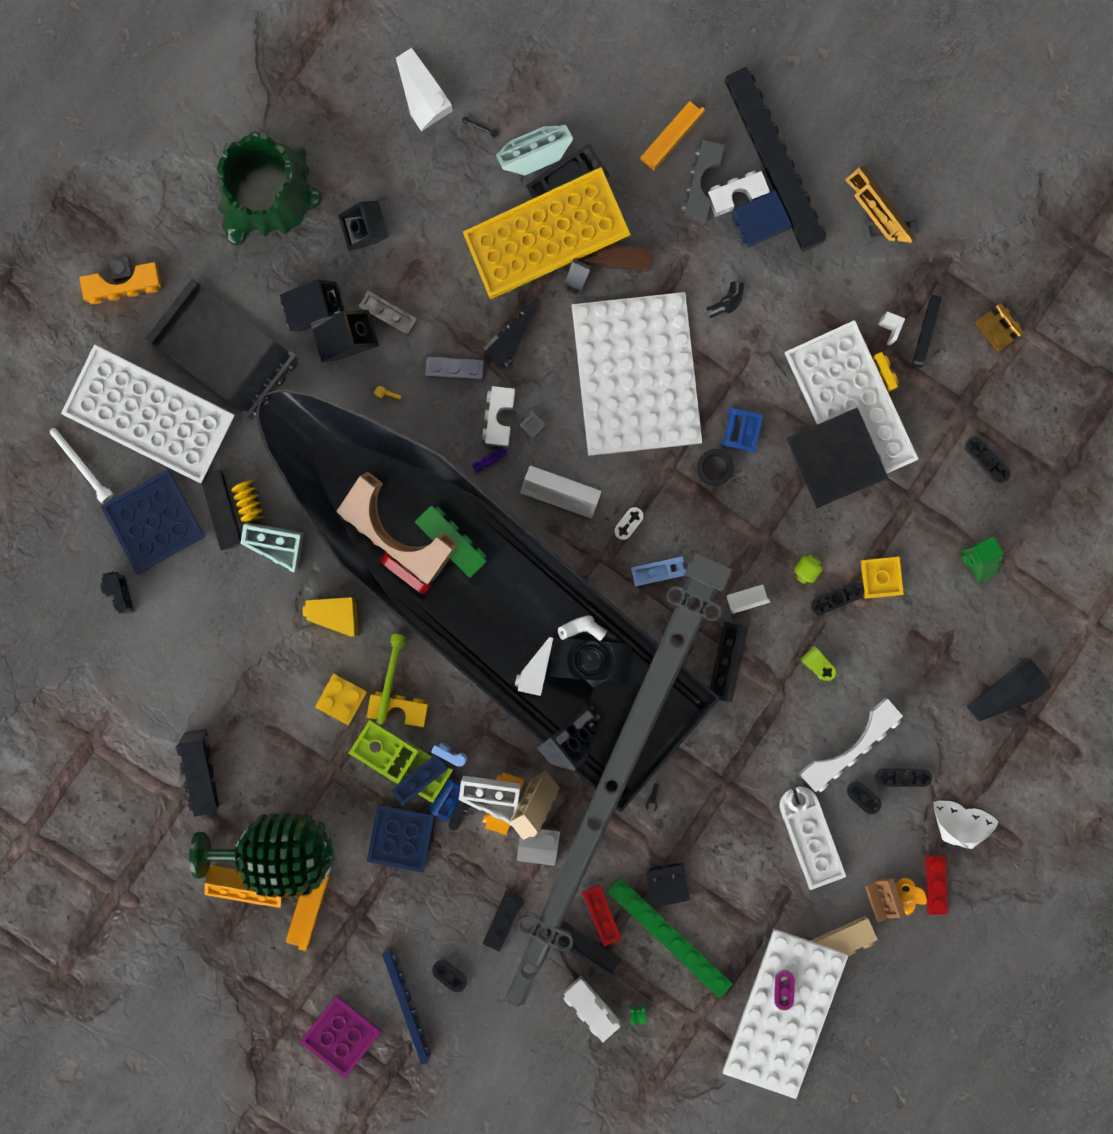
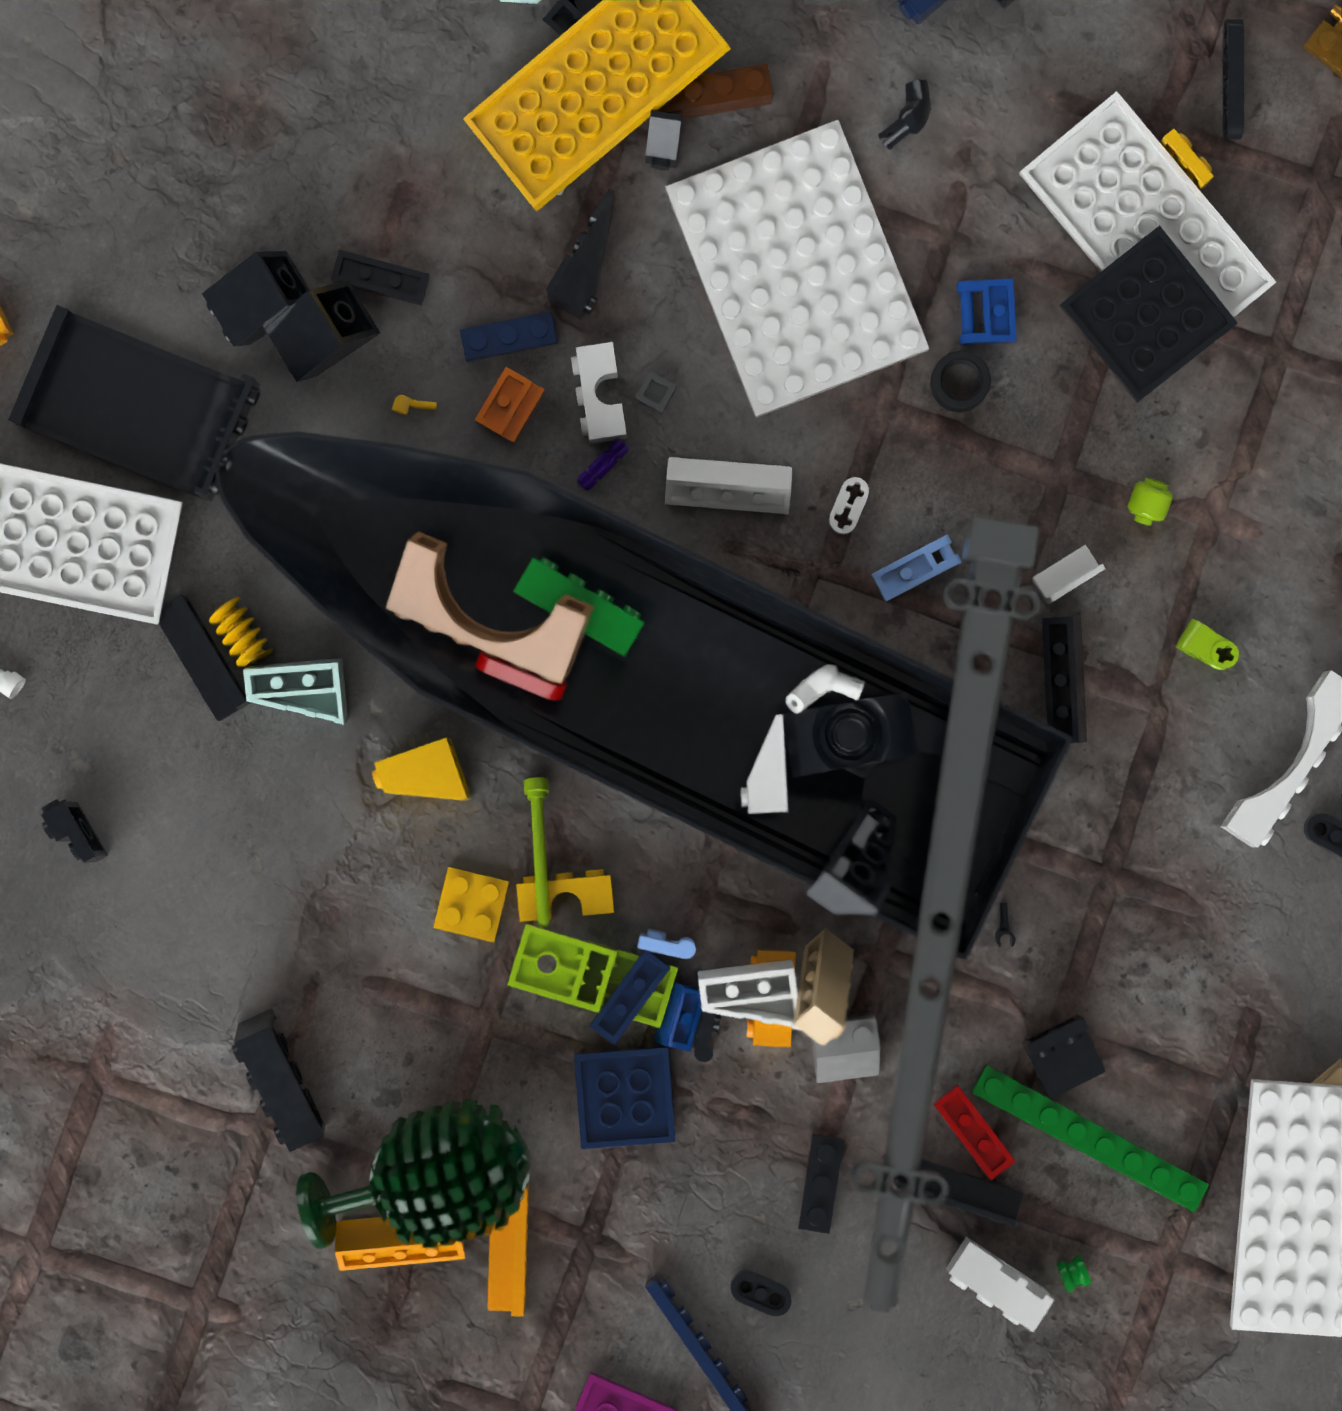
camera: 15 degrees left, 0 degrees up
(152, 522) = (98, 705): dark blue plate -> none
(263, 187) = (129, 131): dark green piece -> none
(363, 225) = (303, 150): black slope -> none
(444, 409) = (509, 405): none -> orange plate
(784, 989) = (1295, 1169): magenta plate -> none
(811, 837) = (1269, 921): white plate -> none
(848, 588) = (1230, 529): black beam -> none
(881, 577) = (1268, 483): yellow plate -> none
(893, 323) = (1180, 80): white panel -> none

